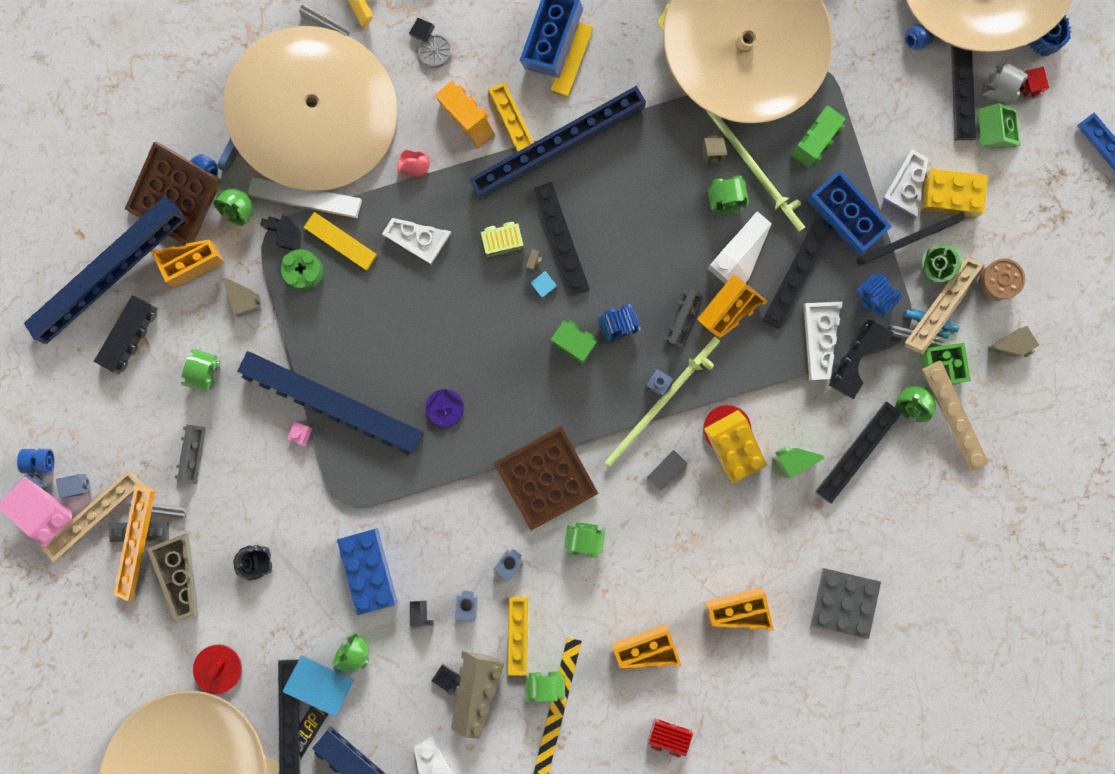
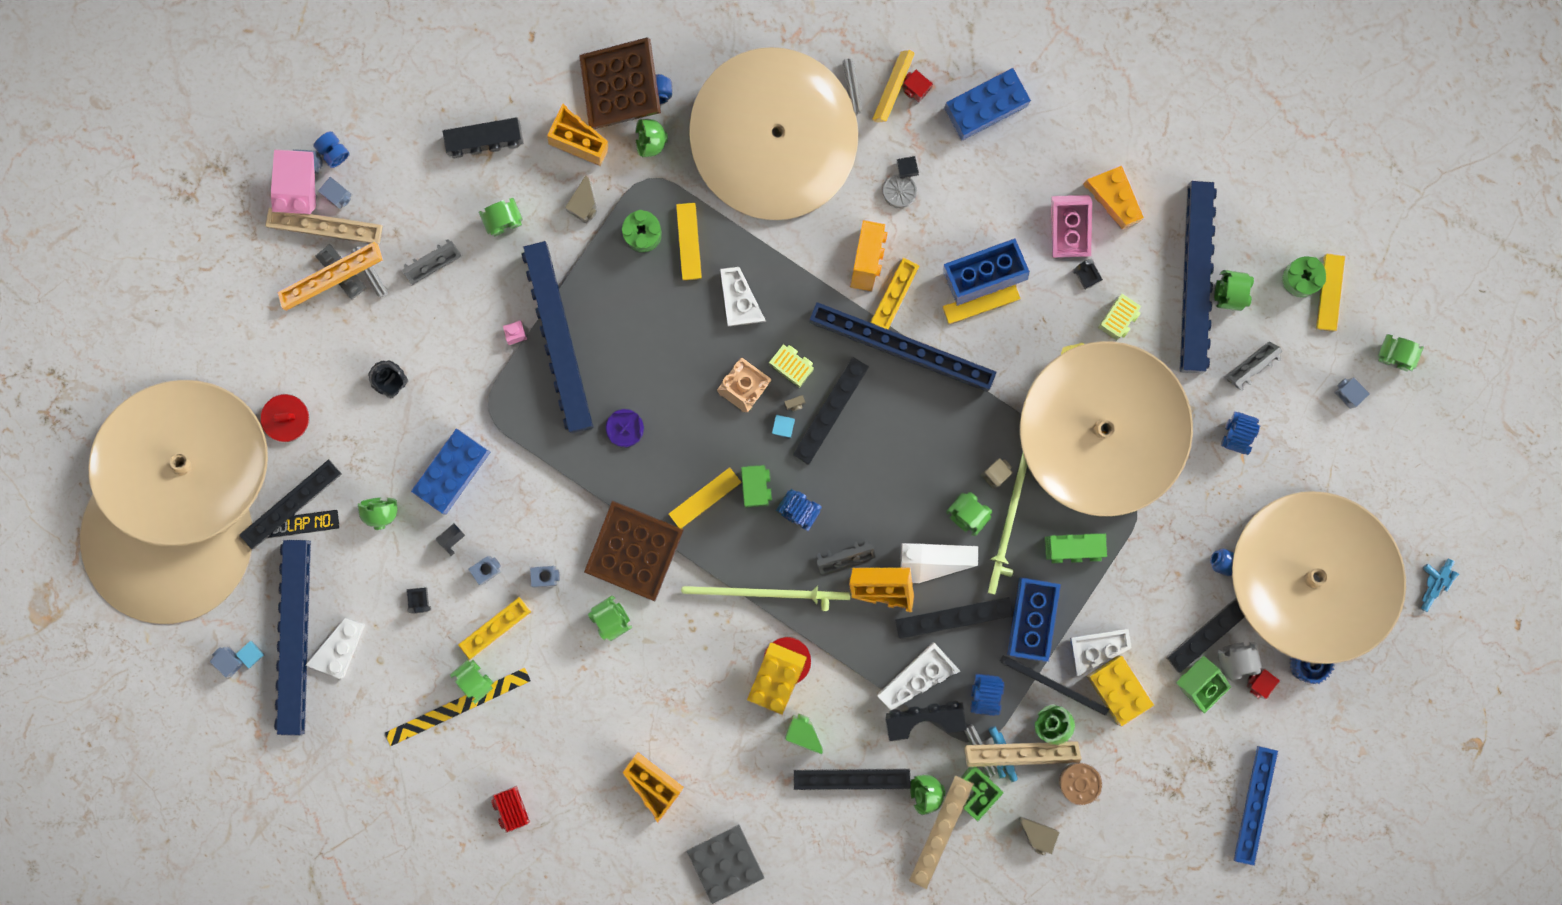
camera: 45 degrees right, 0 degrees up
(104, 271) = (518, 81): dark blue brick -> none
(175, 573) = (330, 328): dark tan wedge -> none
(228, 156) = (683, 100): medium blue tile -> none
(288, 231) = (663, 196): black brick -> none
(313, 200) = (706, 198): white tile -> none
(318, 685) = (333, 505): dark azure tile -> none
(413, 163) = (796, 247): coral hair -> none
(475, 694) = (424, 630): dark tan wedge -> none
(487, 289) = (743, 385): none -> light nougat slope
(550, 389) = (705, 498): none -> yellow tile
(647, 648) = (564, 736): light orange wedge -> none
(659, 382) = (778, 578): sand blue brick -> none
(667, 470) = (716, 640): dark grey tile -> none

